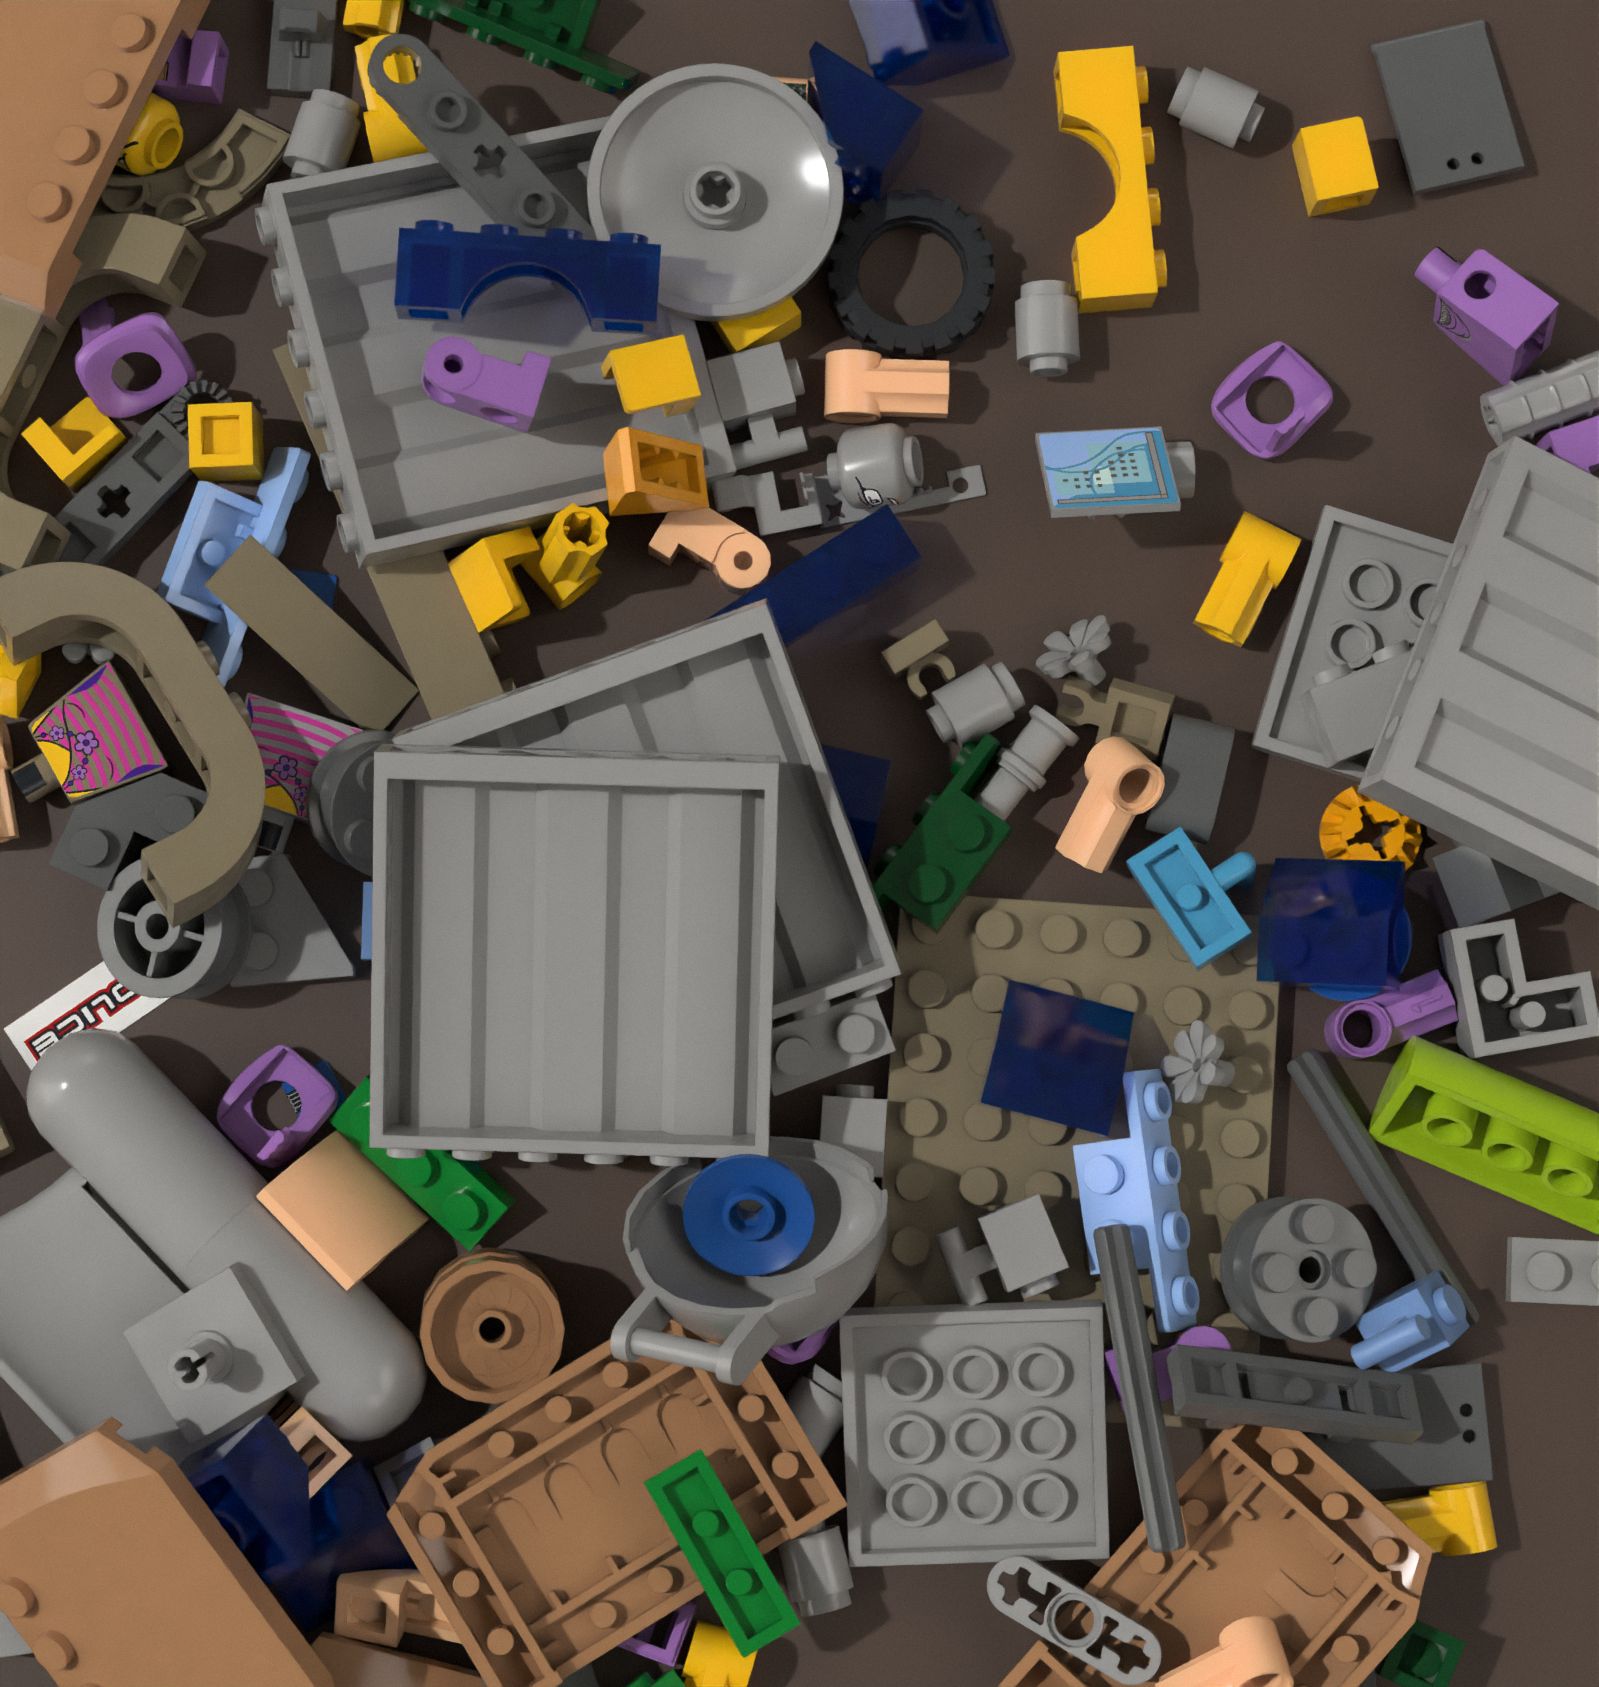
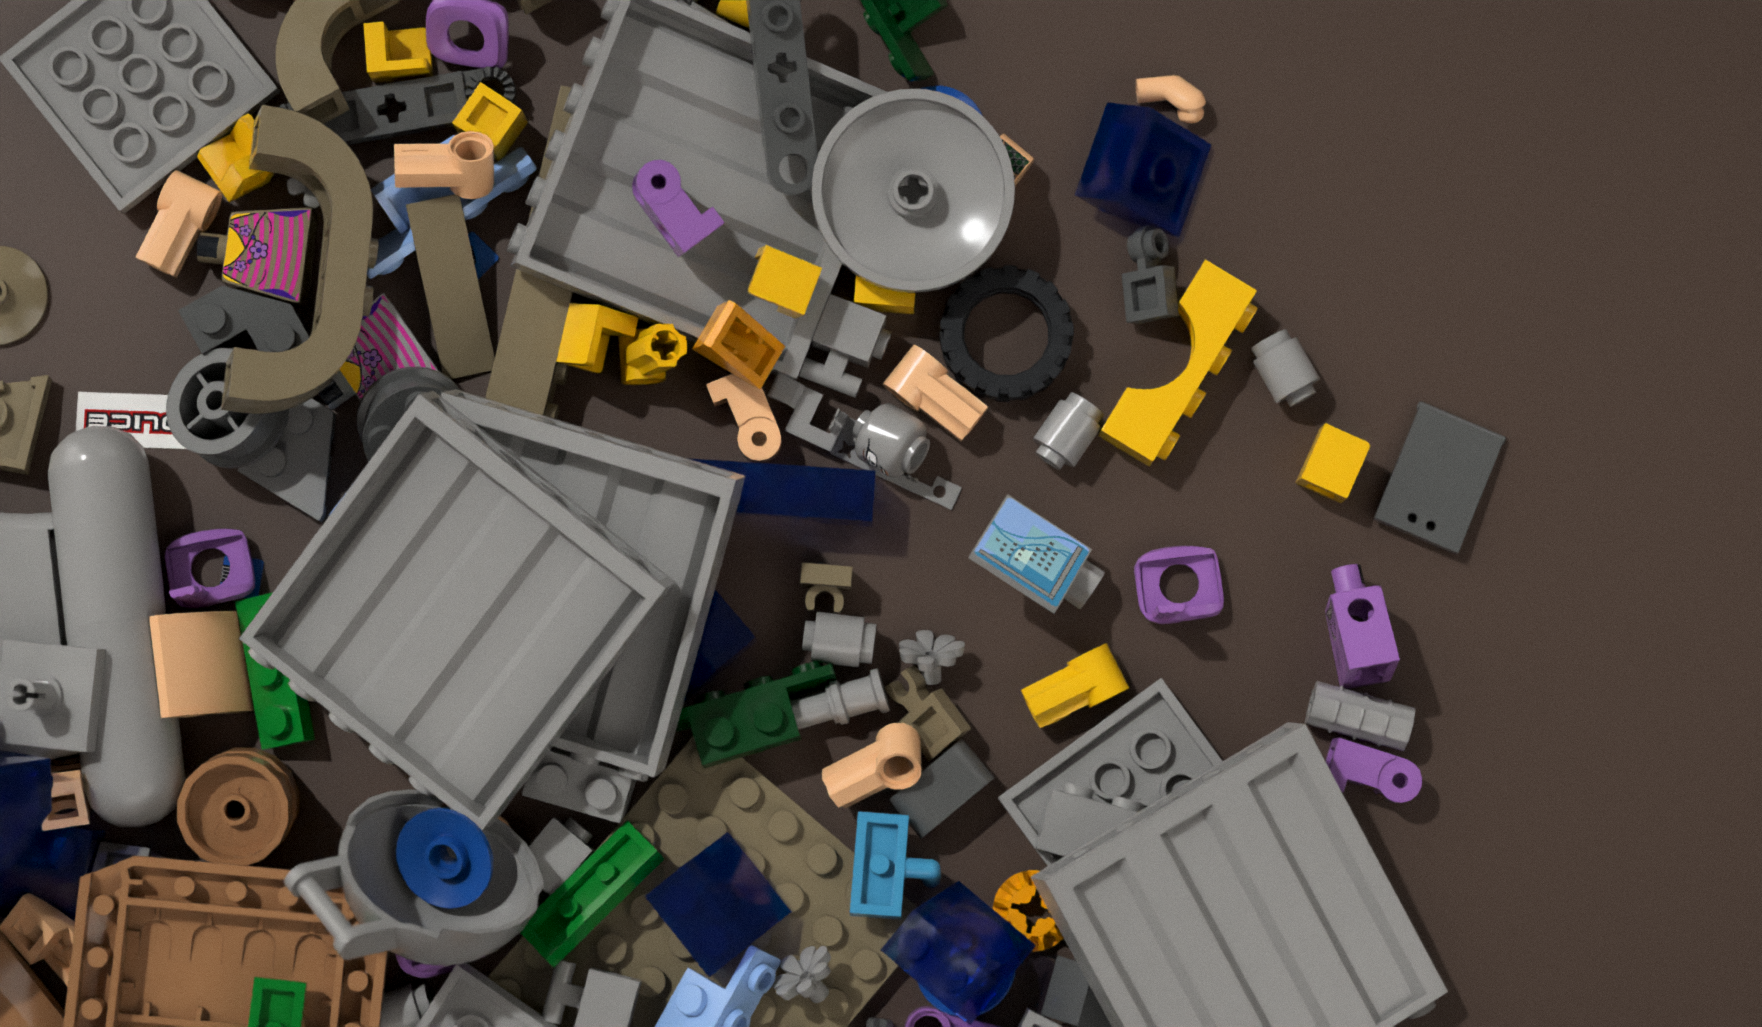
camera: 40 degrees right, 0 degrees up
(230, 504) = (462, 165): none -> light nougat piece
(448, 270) = (699, 120): clear blue arch -> none
(864, 122) = (1040, 216): clear blue slope -> none
(921, 1140) = (591, 893): none -> green plate
(1024, 125) = (1152, 288): none -> dark grey plate

